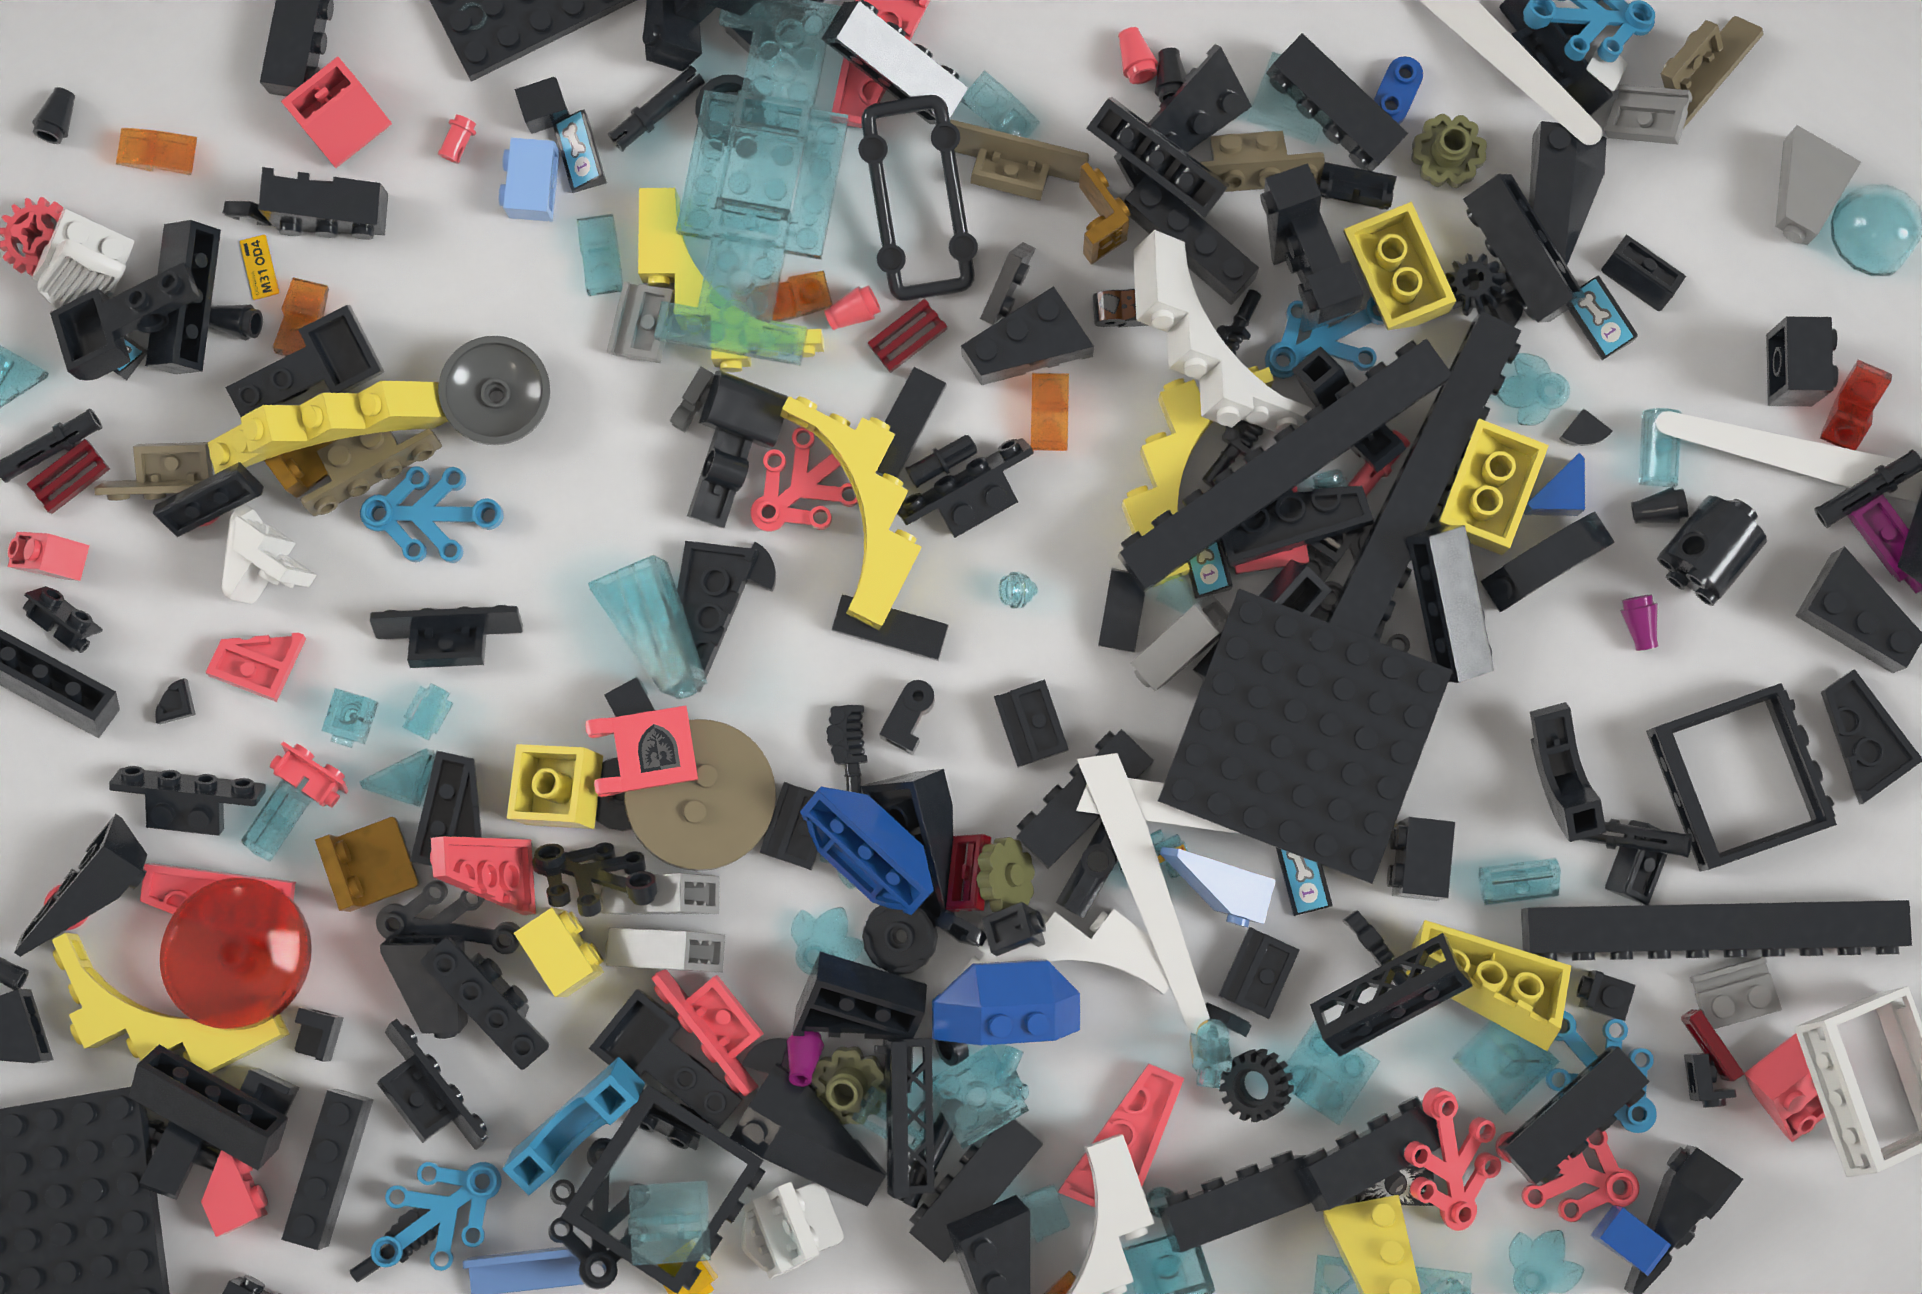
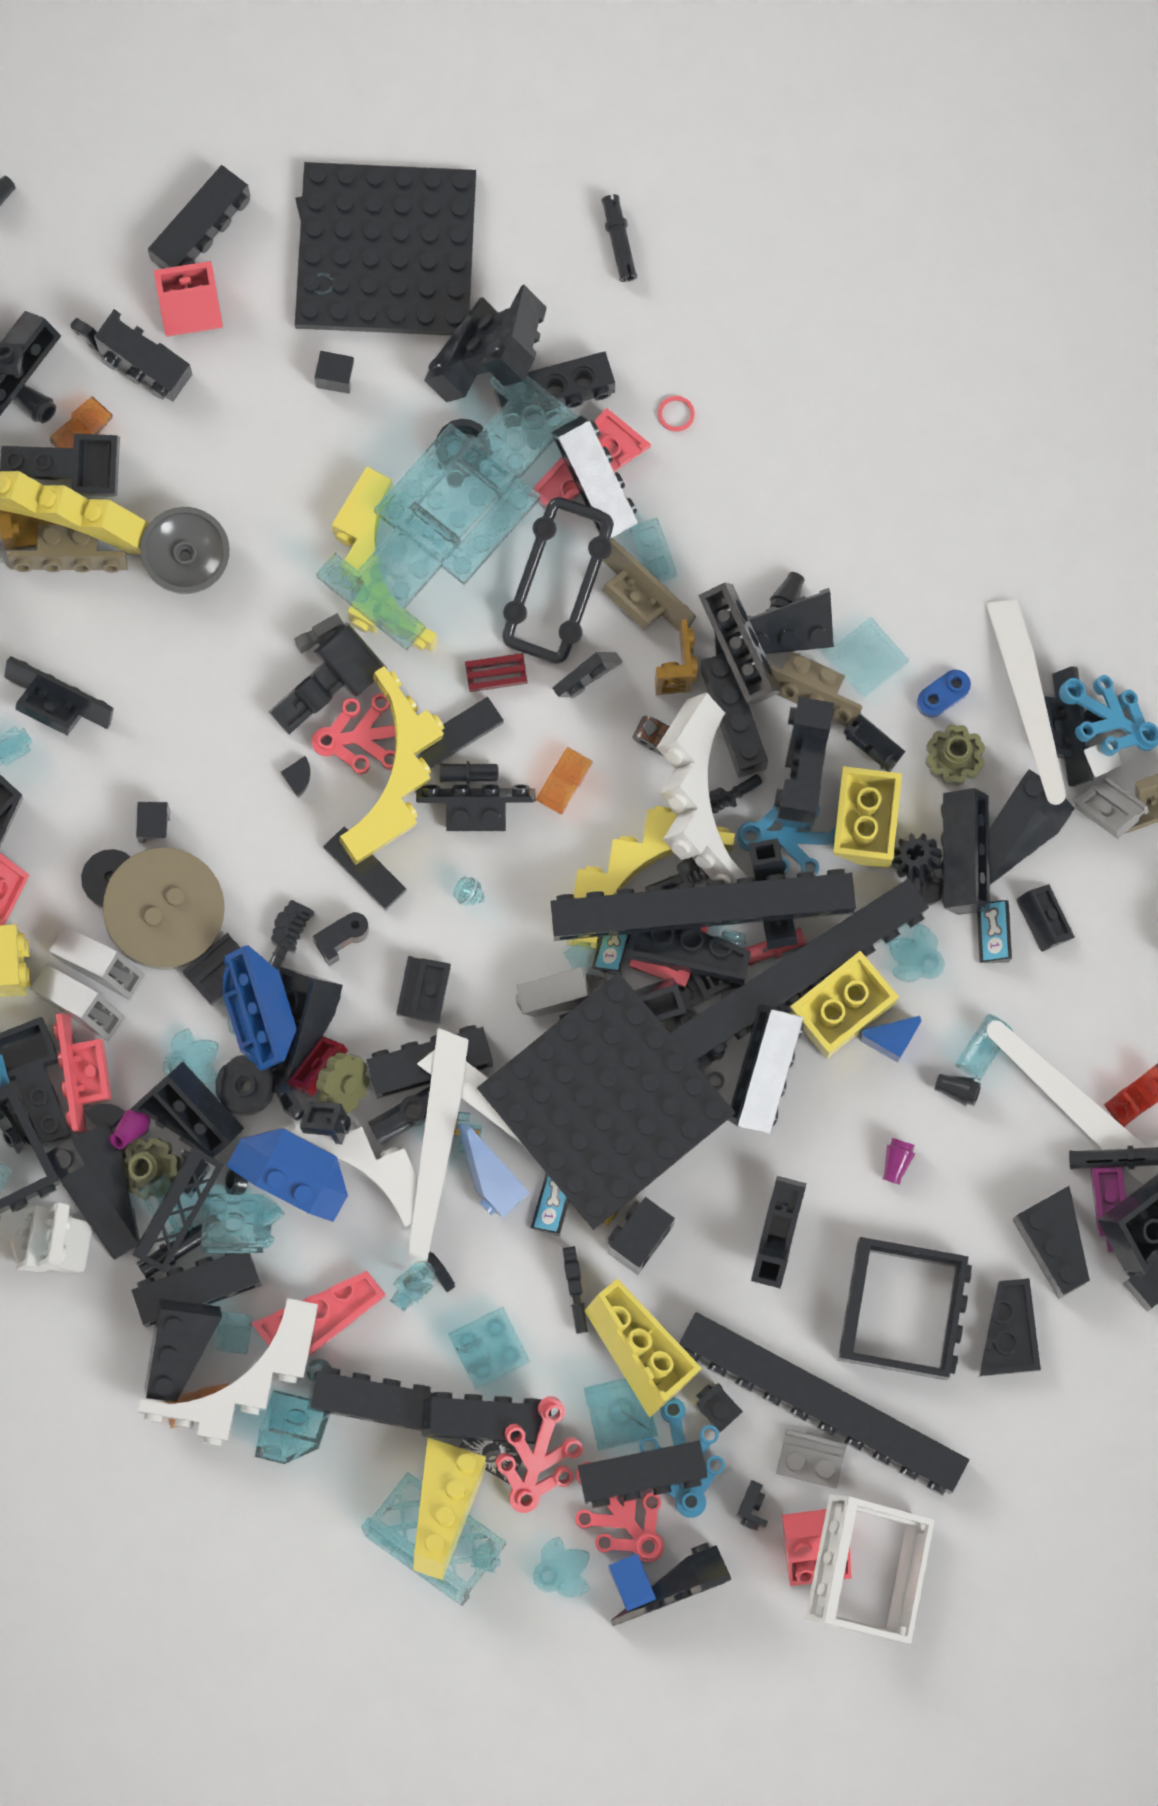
camera: 20 degrees right, 5 degrees down
(156, 149) = (49, 256): clear orange slope -> none
(259, 267) = (73, 376): yellow sticker -> none
(426, 512) = (88, 609): dark azure plant -> none
(457, 138) = (262, 362): coral pin -> none
(530, 179) = (295, 418): light blue brick -> none
(552, 860) = (36, 897): black plant -> none
(554, 786) = (67, 845): light yellow brick -> none
(579, 152) = (341, 418): slope -> none
(600, 254) = (314, 498): clear light blue slope -> none
(637, 321) = (310, 557): light grey plate -> none
(650, 748) = (147, 855): coral flag -> none
(653, 623) = (200, 771): clear light blue slope -> none
(656, 108) = (412, 417): black pin -> none
(710, 590) = (244, 779): black wing -> none
(802, 296) = (436, 604): clear orange slope -> none
(854, 308) = (468, 632): coral cone -> none
(1026, 340) = (576, 721): black wedge -> none
(1121, 612) = (532, 948): black slope -> none
(1136, 56) = (771, 568): coral cone -> none
(1258, 972) = (481, 1252): black plate -> none
(1276, 1079) = (418, 1322): black tyre -> none
(1336, 103) = (893, 677): black brick -> none
(1391, 1003) = (557, 1320): black fence -> none
(1519, 881) = (703, 1292): clear light blue brick -> none
(1547, 561) = (855, 1077): black arch -> none
(1585, 430) = (937, 1005): black tile -> none
(1635, 870) = (797, 1329): black slope -> none
(1677, 843) = (825, 1324): black pin -> none
(1712, 1044) = (771, 1483): dark red tile -> none
(1713, 548) = (976, 1134): black cylinder -> none
(1801, 361) = (1116, 1037): black brick -> none

